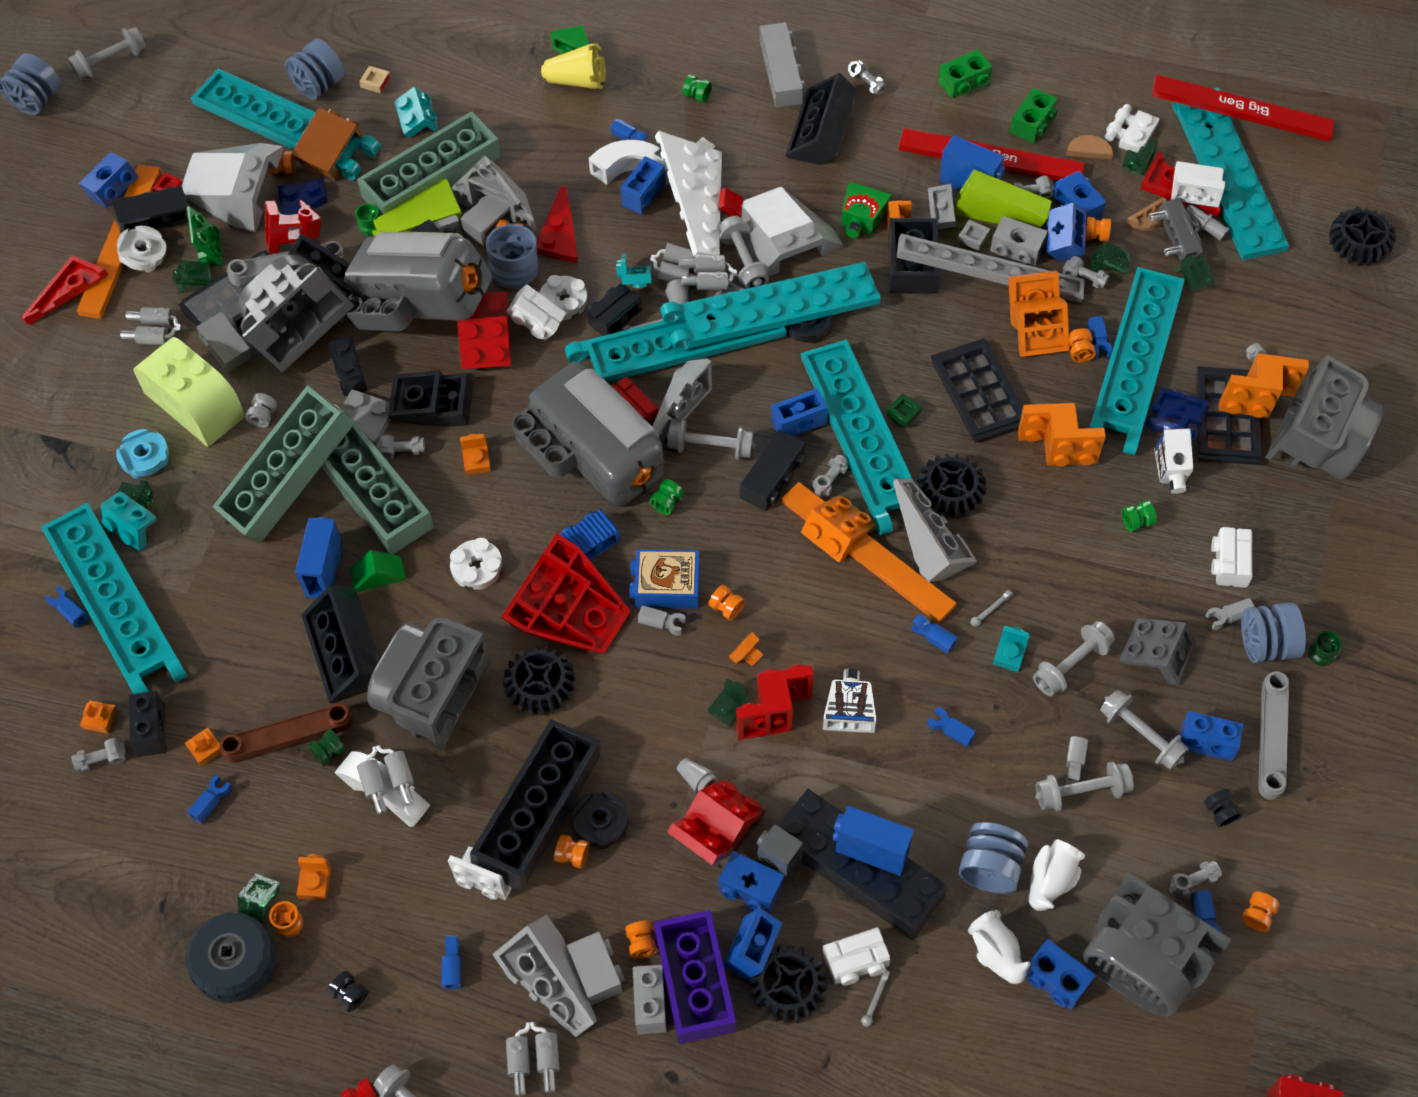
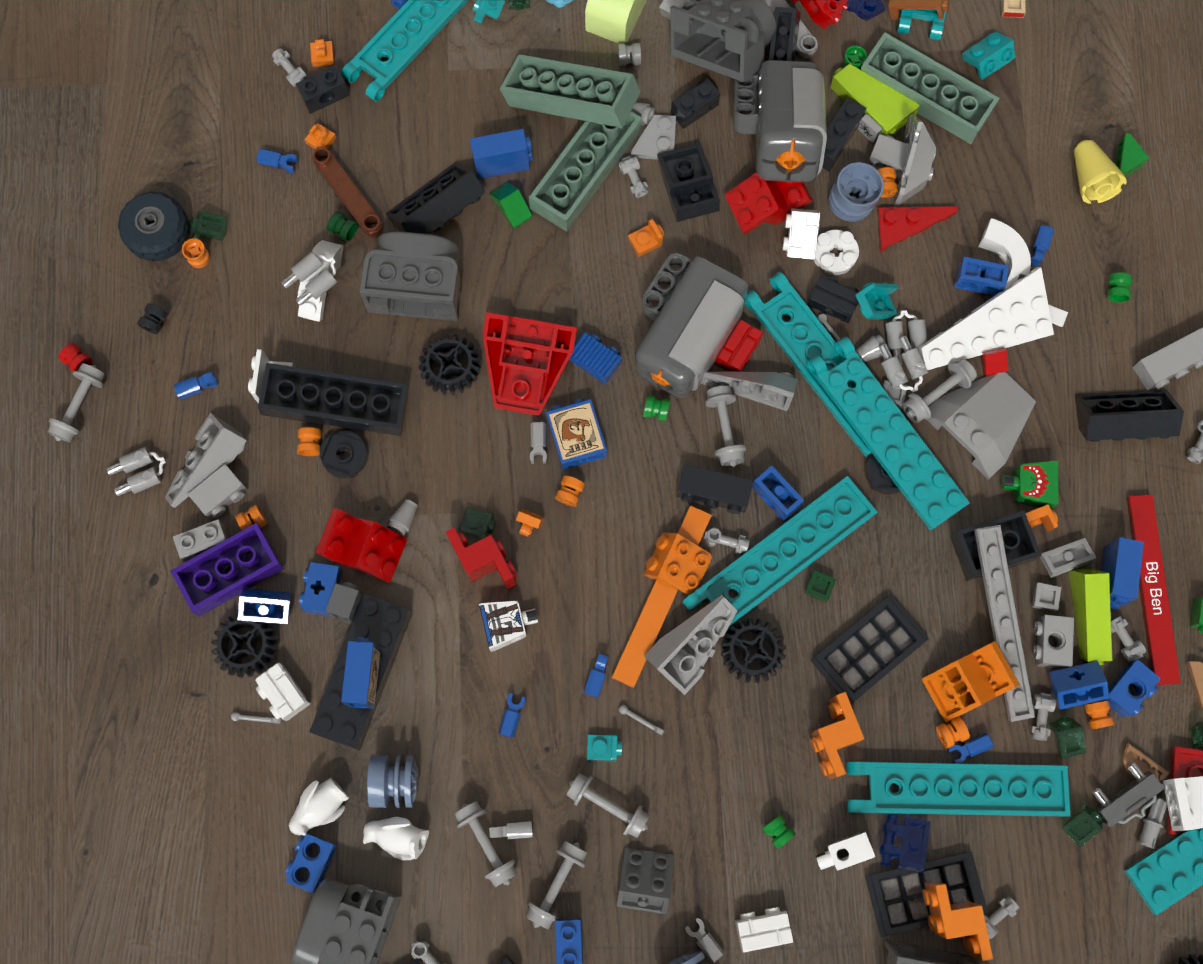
camera: 70 degrees right, 15 degrees up
(313, 877) = (235, 260): orange bracket -> none
(471, 551) = (541, 265): white plate -> none

